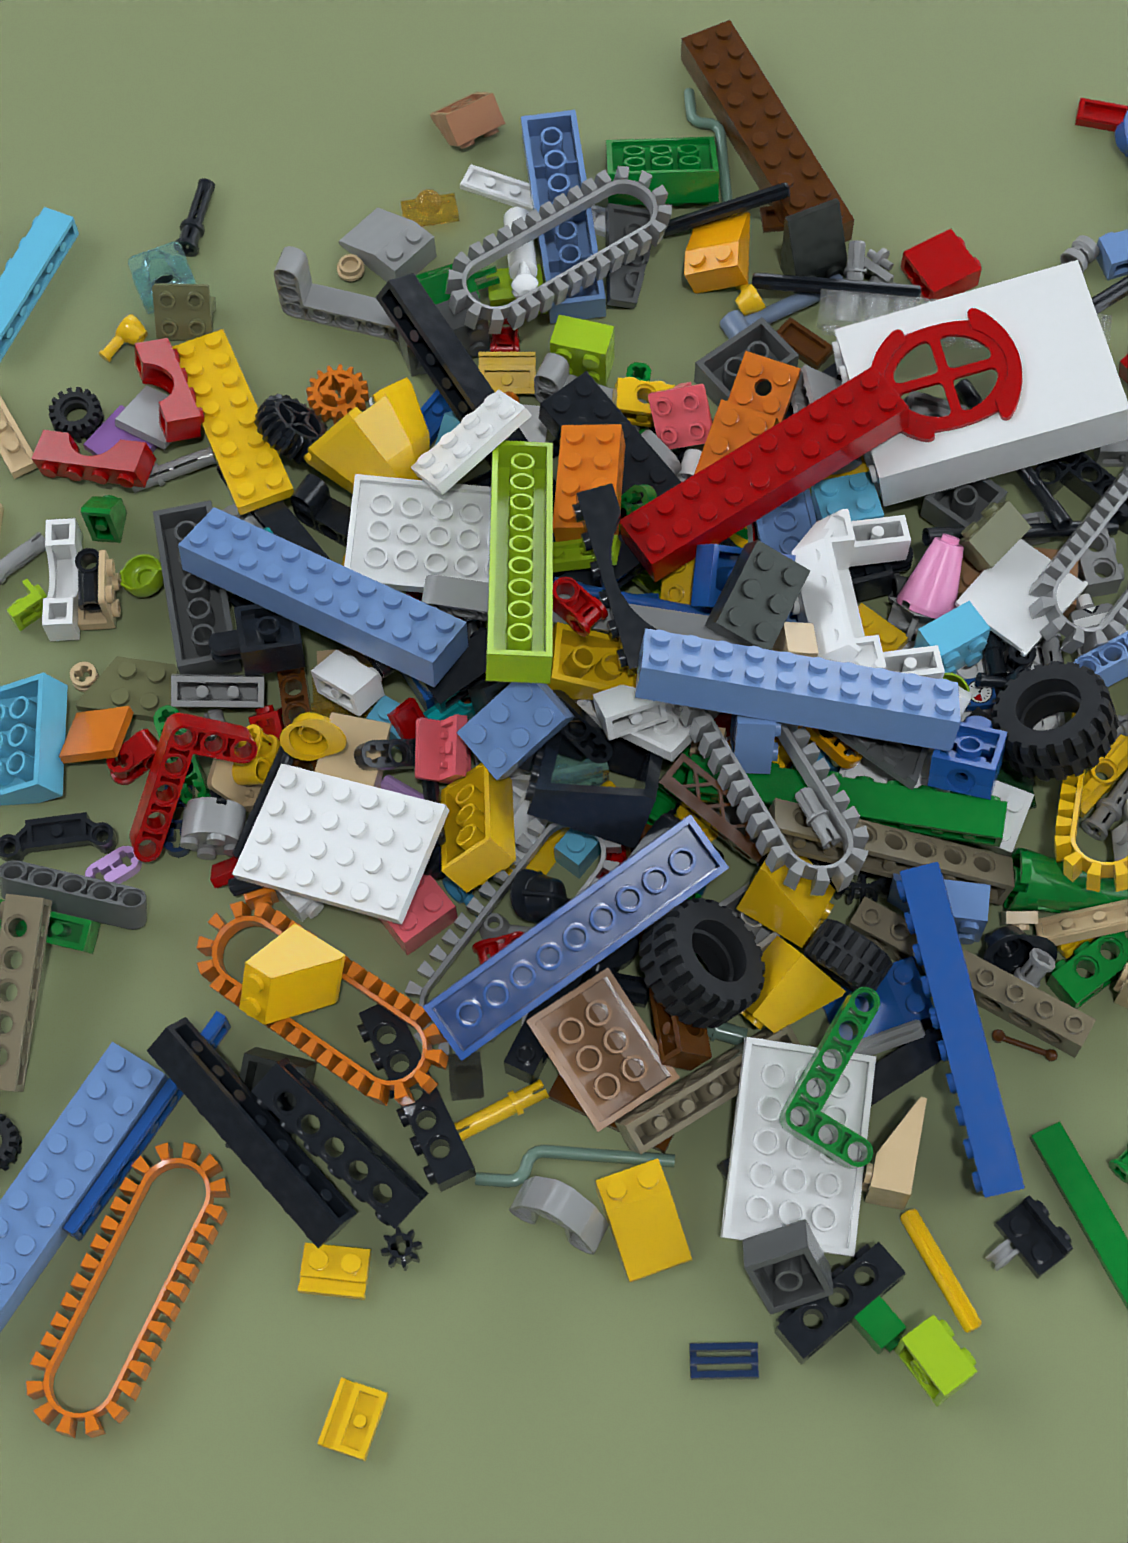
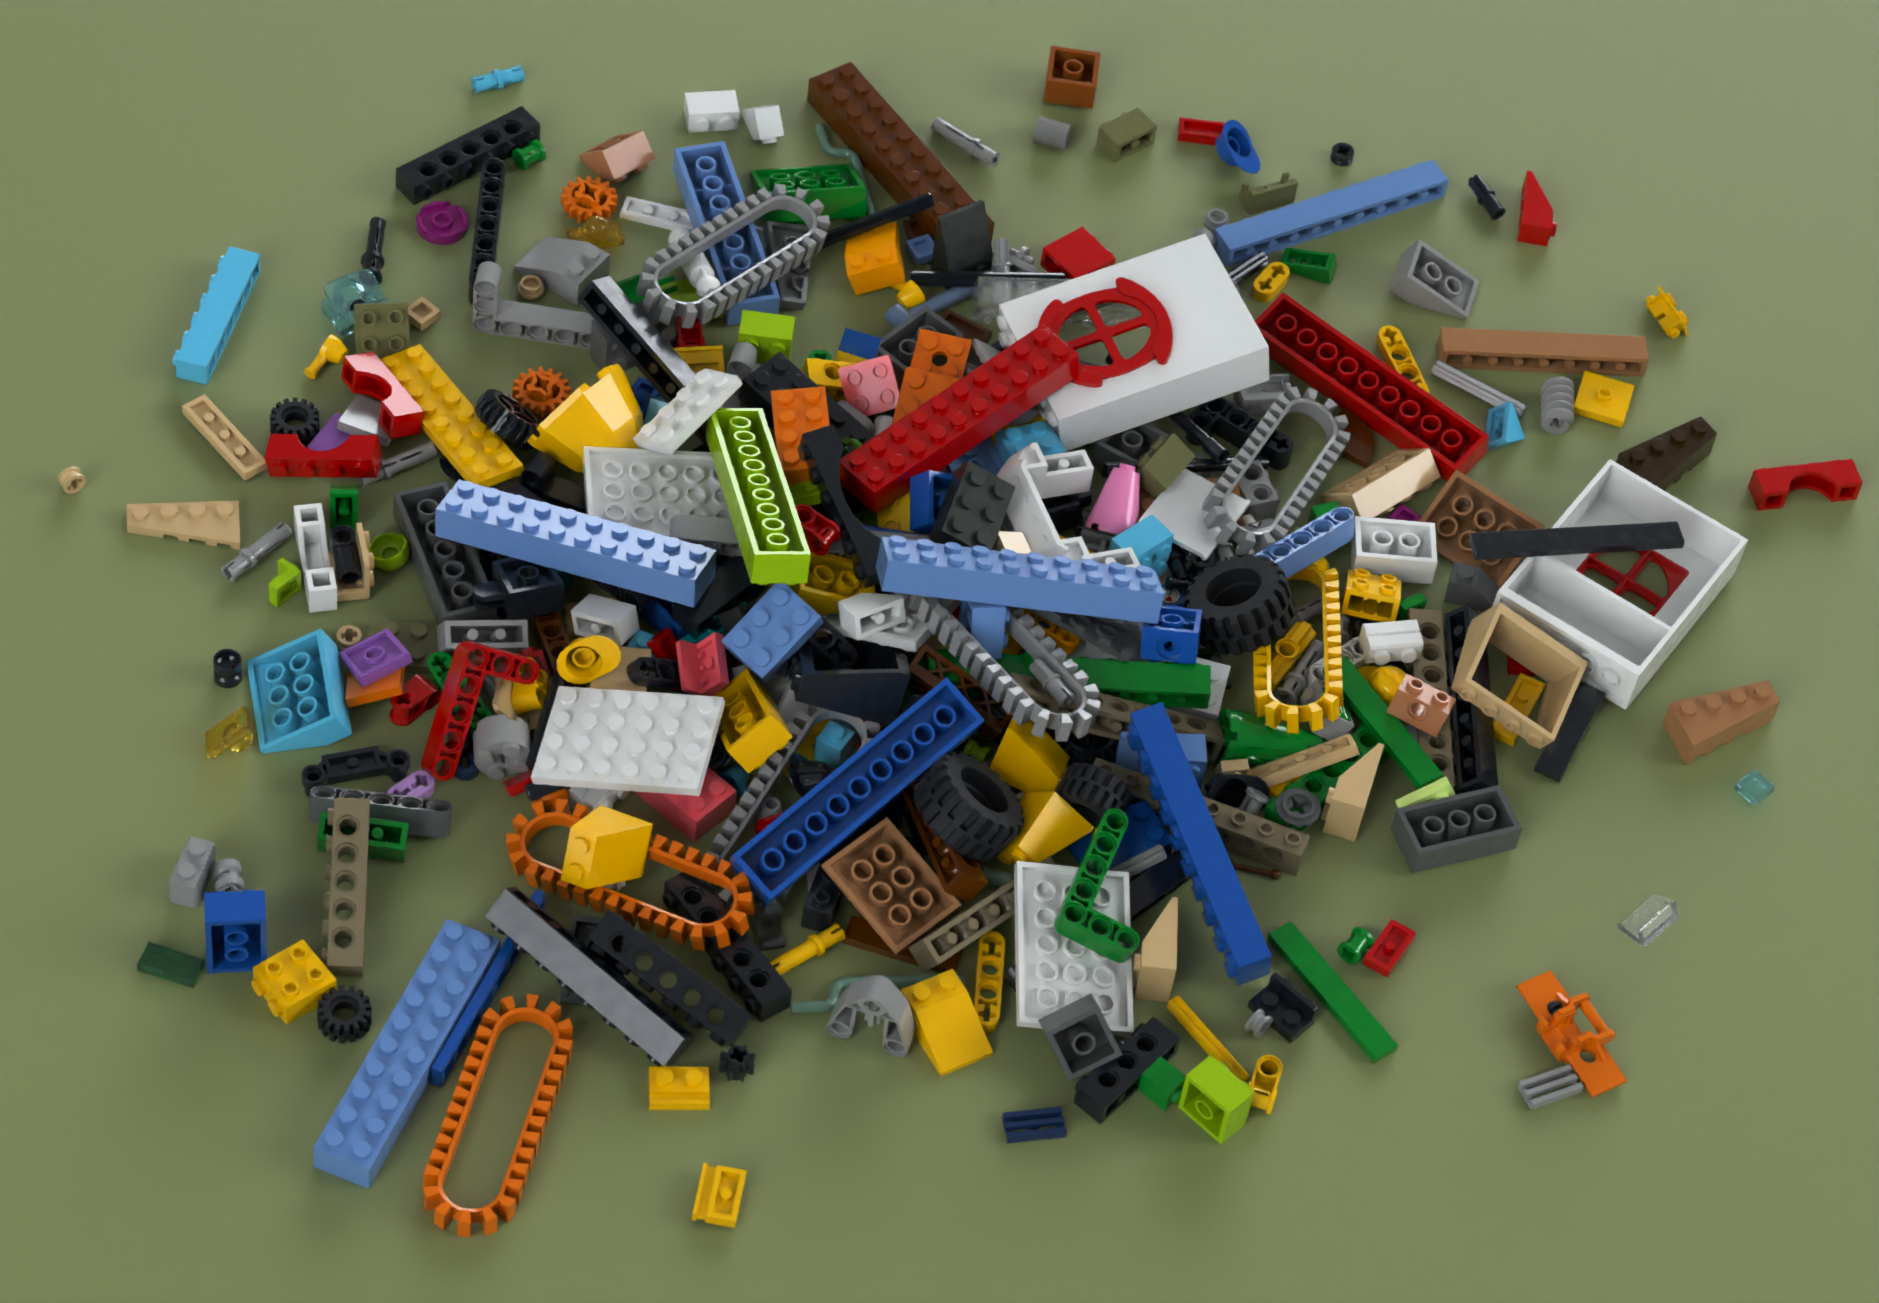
camera: 20 degrees left, 15 degrees down
(100, 707) = (375, 657): none -> medium lavender tile
(231, 293) = (423, 313): none -> tan plate
(273, 186) = (442, 223): none -> magenta tile
(312, 110) = (465, 155): none -> black brick
(319, 188) = (487, 217): none -> black beam
(360, 23) = (497, 79): none -> medium azure pin
(381, 105) = (539, 155): none -> green bush
(428, 167) = (588, 199): none -> orange gear
(575, 69) = (711, 111): none -> white brick
(628, 86) = (764, 123): none -> white slope
(679, 364) = (857, 347): none -> blue sticker
(702, 1167) = (987, 981): none -> yellow beam
(732, 878) = (981, 753): none -> lime wheel
(770, 243) = (920, 249): none -> medium blue plate
(848, 123) = (972, 146): none -> light grey pin
(936, 111) = (1051, 133): none -> light grey piece
(967, 46) = (1071, 77): none -> dark orange brick
(993, 1346) = (1265, 1085): none -> yellow piece
(1018, 116) = (1126, 134): none -> olive brick
(1091, 970) = (1301, 799): none -> dark grey gear
(1102, 223) = (1215, 218): none -> light grey plate

